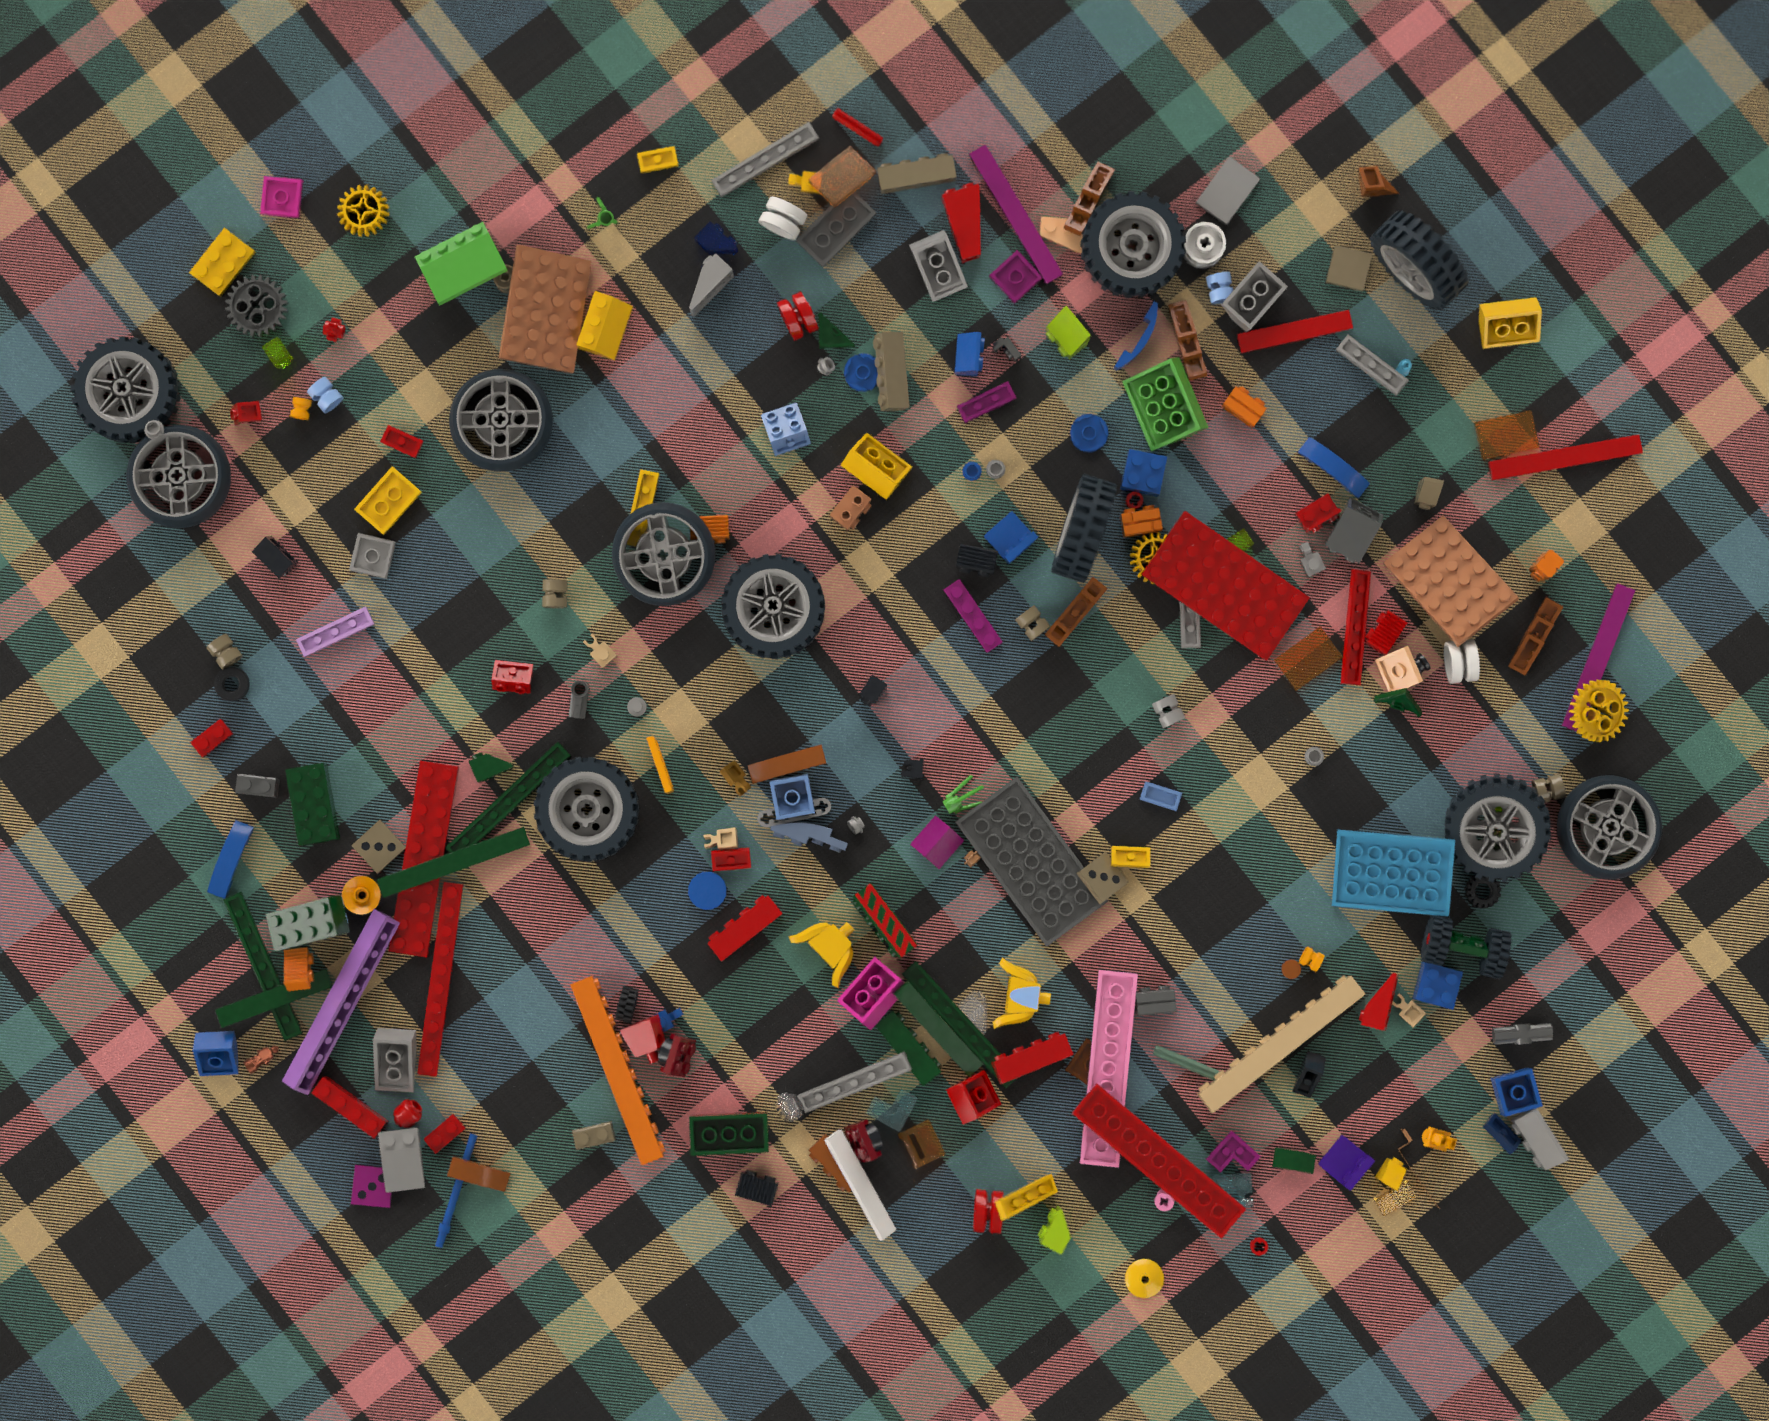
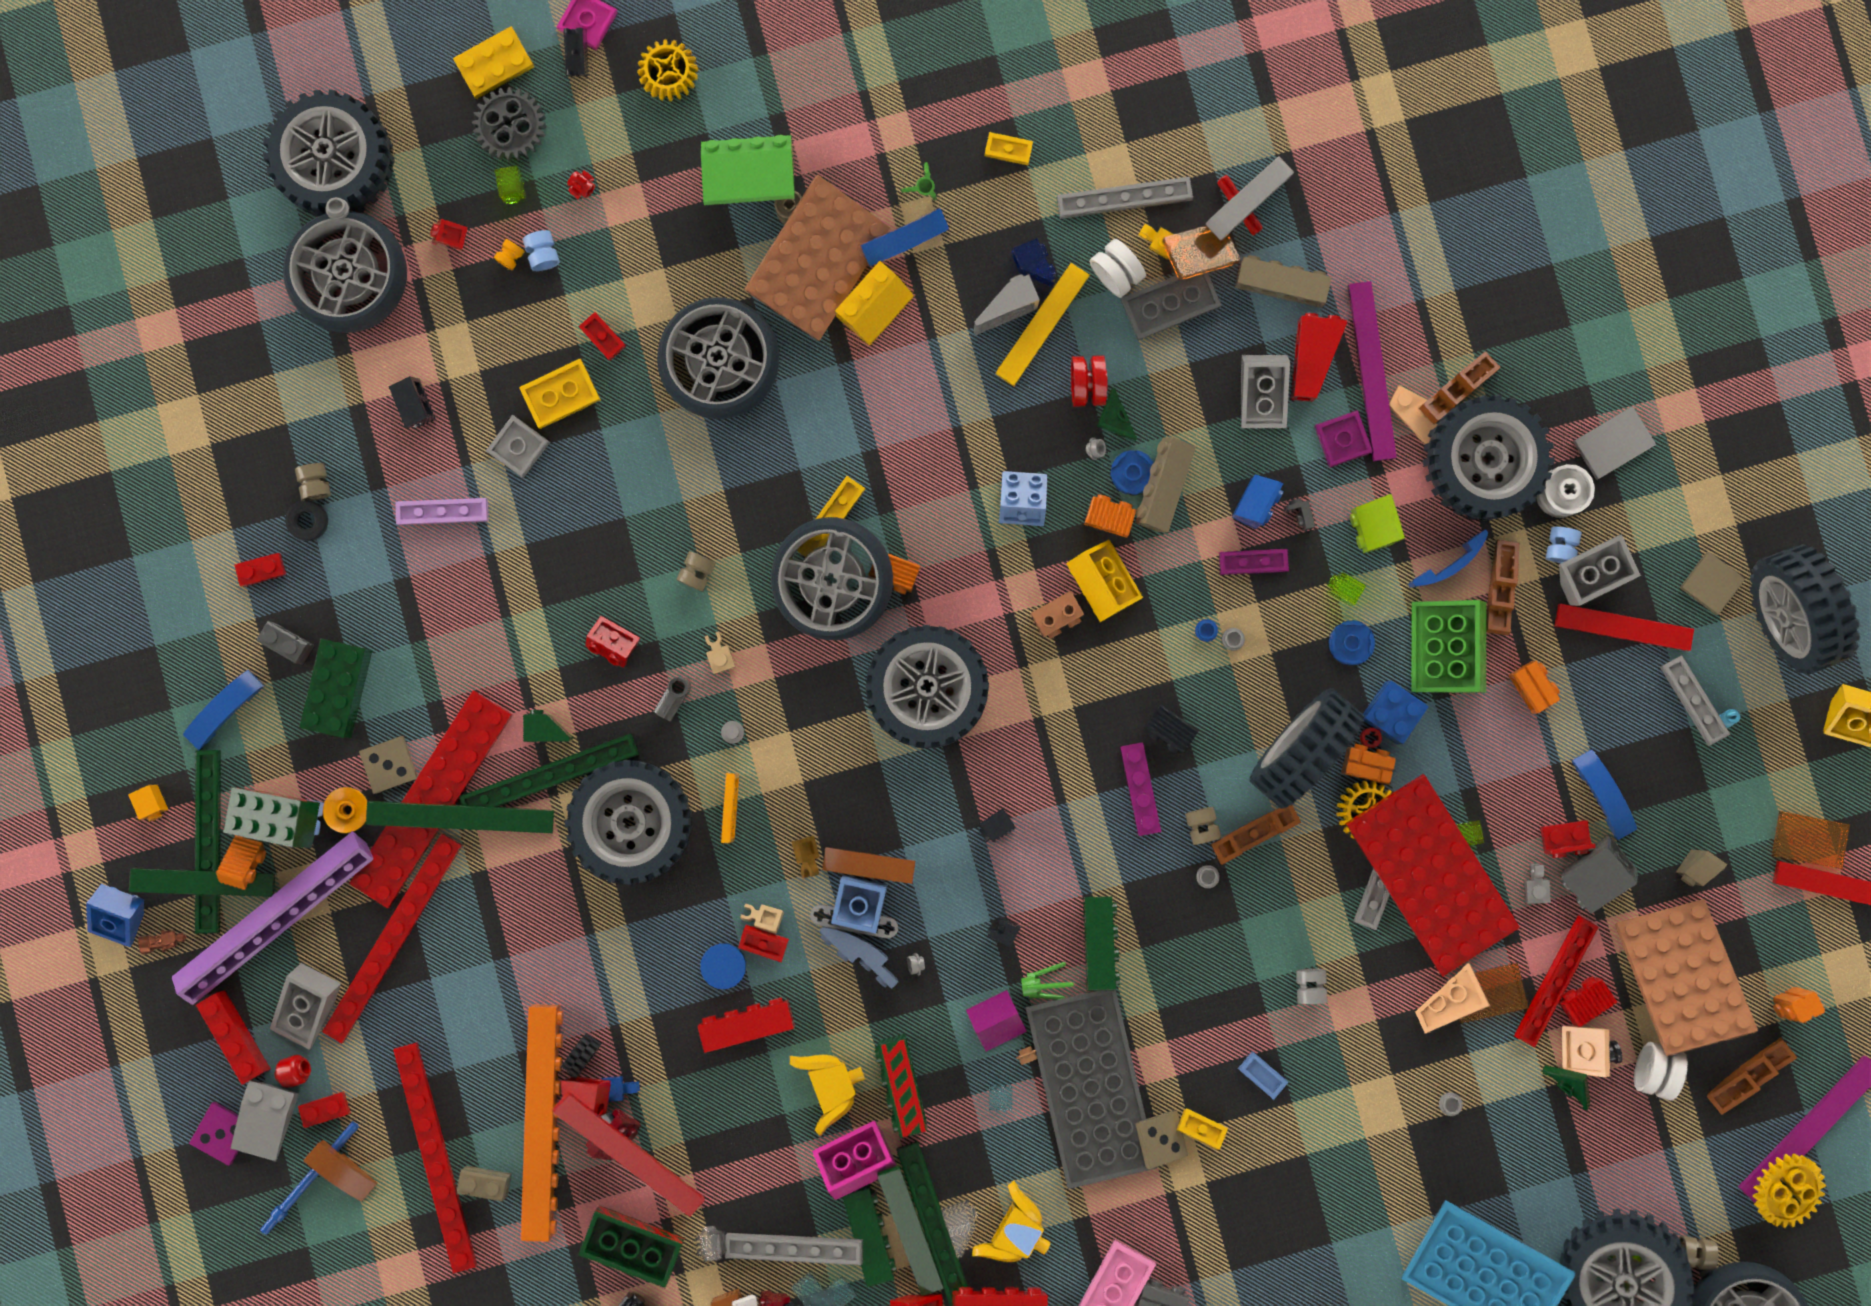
camera: 25 degrees right, 0 degrees up
(204, 955) = (148, 802): none -> light orange brick
(284, 227) = (576, 52): none -> black hinge
(546, 1133) = (435, 1157): none -> red plate
(606, 264) = (905, 237): none -> blue slope
(696, 1061) = (628, 1154): none -> red tile
(743, 286) = (1042, 324): none -> yellow tile
(859, 413) = (1110, 516): none -> orange brick
(862, 119) = (1249, 198): none -> light grey beam
(965, 900) = (1000, 1098): none -> clear light blue plate
(991, 748) = (1099, 944): none -> dark green brick
(1010, 537) = (1218, 721): blue bracket -> none
(1053, 661) = (1207, 876): none -> light grey plate
(1066, 393) = (1345, 588): none -> clear neon green brick
(1282, 676) = (1453, 1001): none -> light nougat wing
(1374, 183) = (1778, 501): dark orange slope -> none

